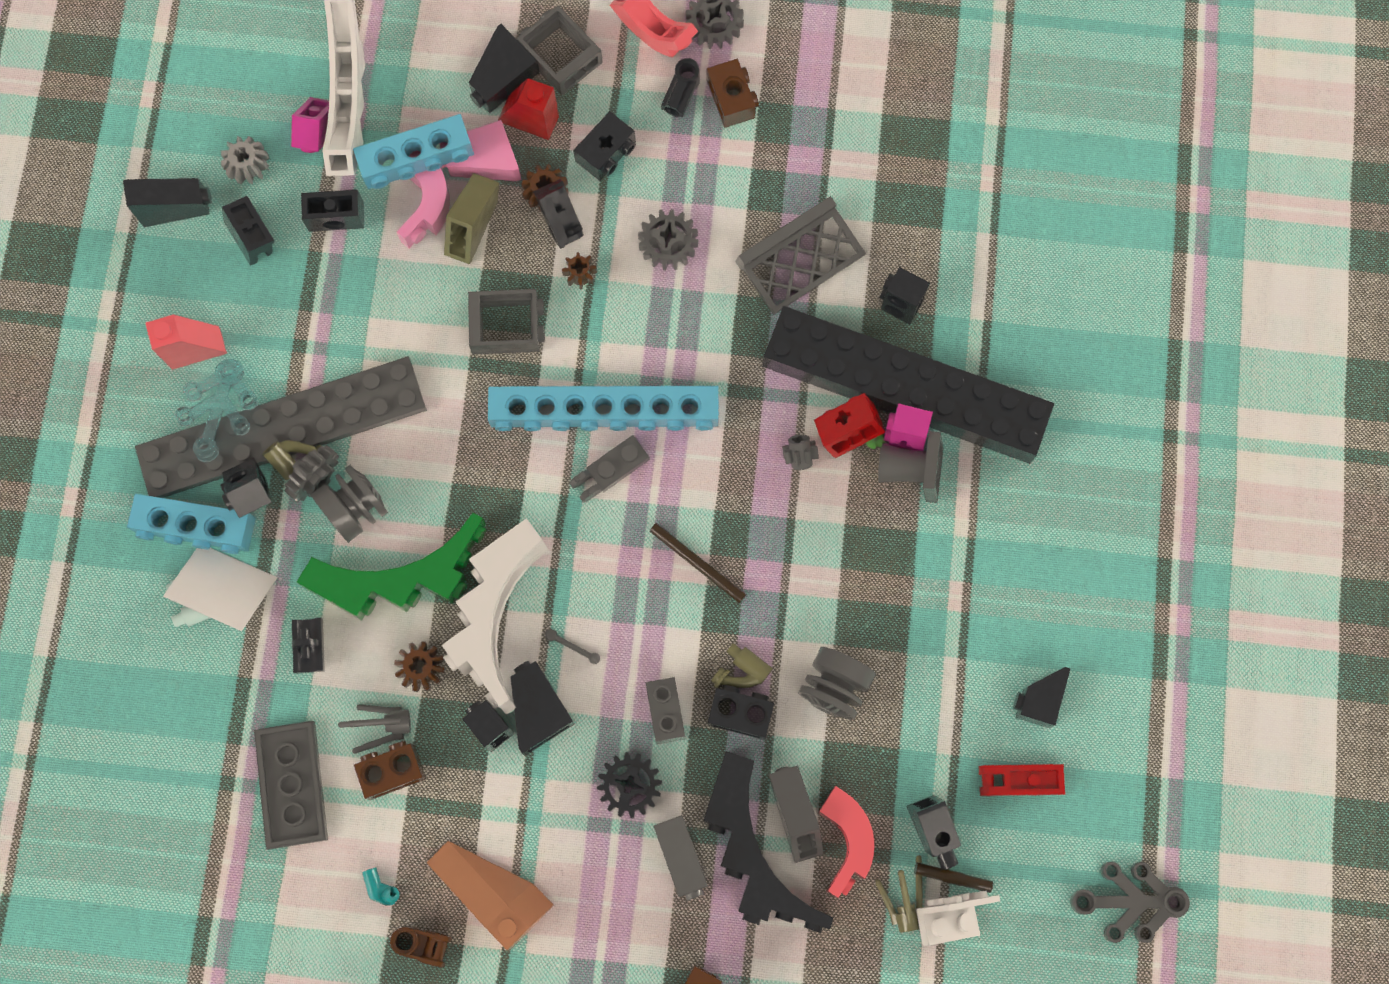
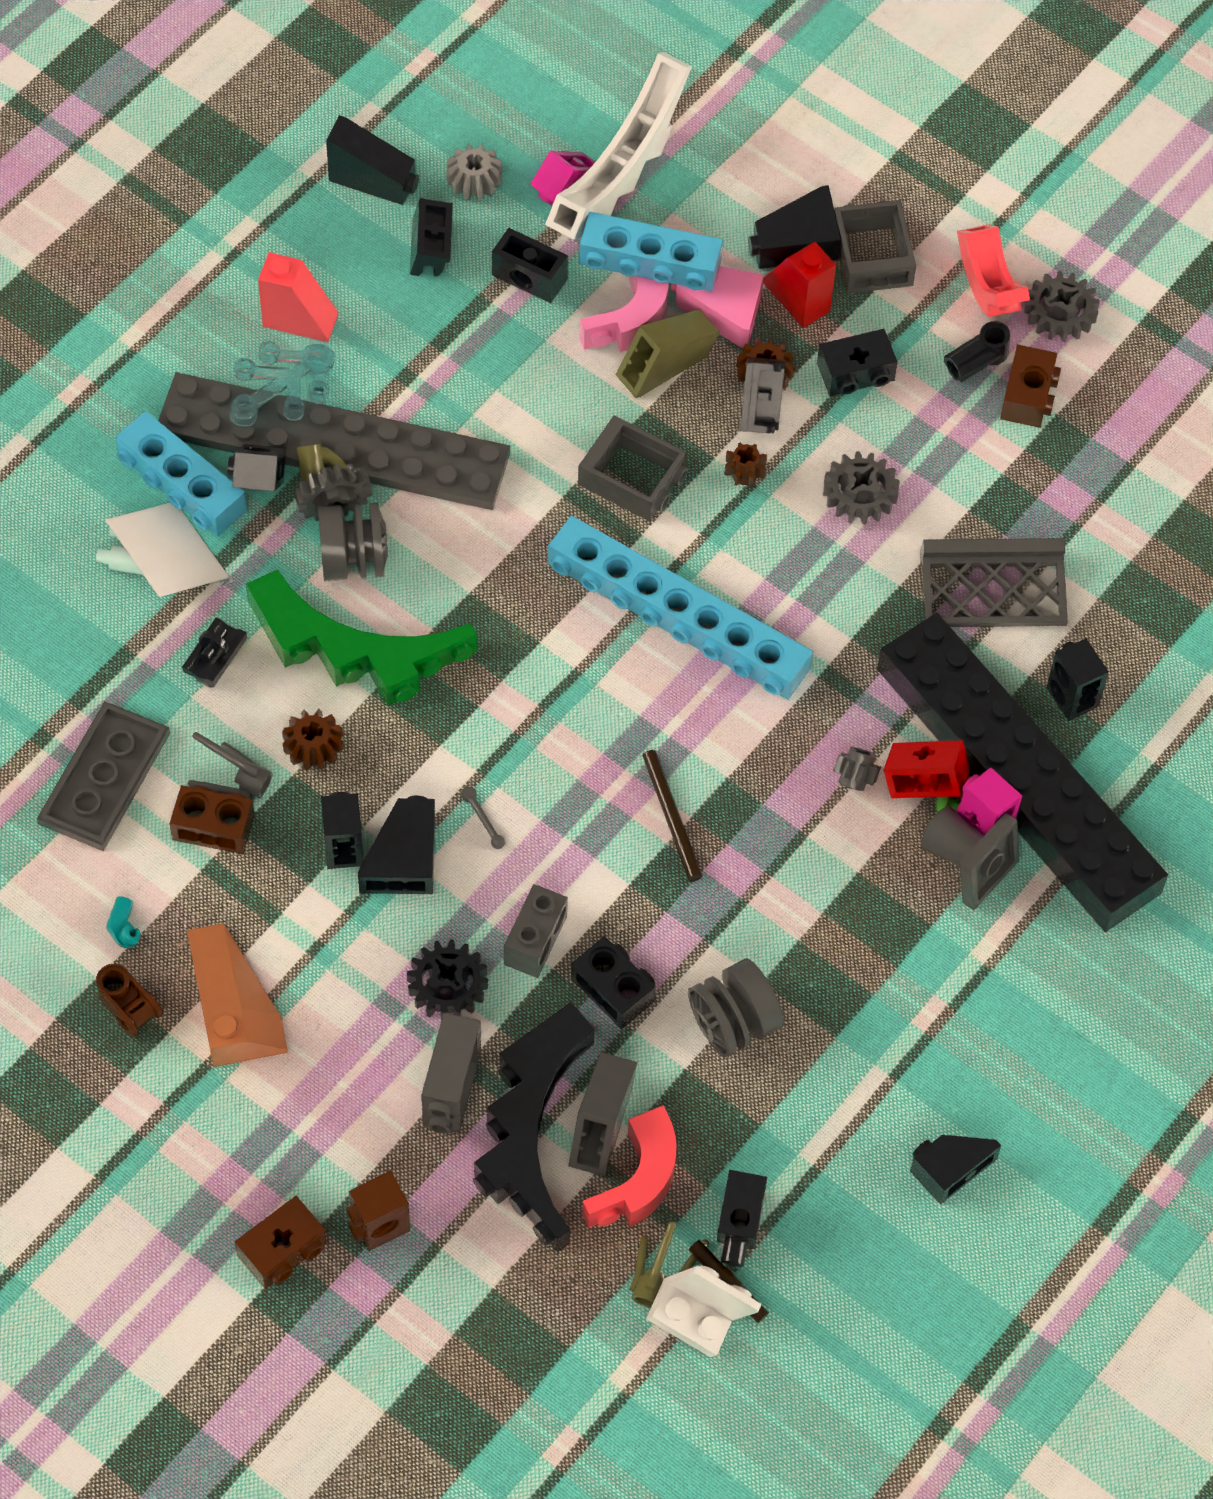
camera: 30 degrees right, 15 degrees down
(497, 572) = (454, 698): white arch -> none
(611, 467) = (643, 672): dark grey hinge -> none
(747, 661) = (660, 949): olive plant -> none
(1023, 780) = (872, 1231): red plate -> none
(1135, 901) = (911, 1429): dark grey plant -> none

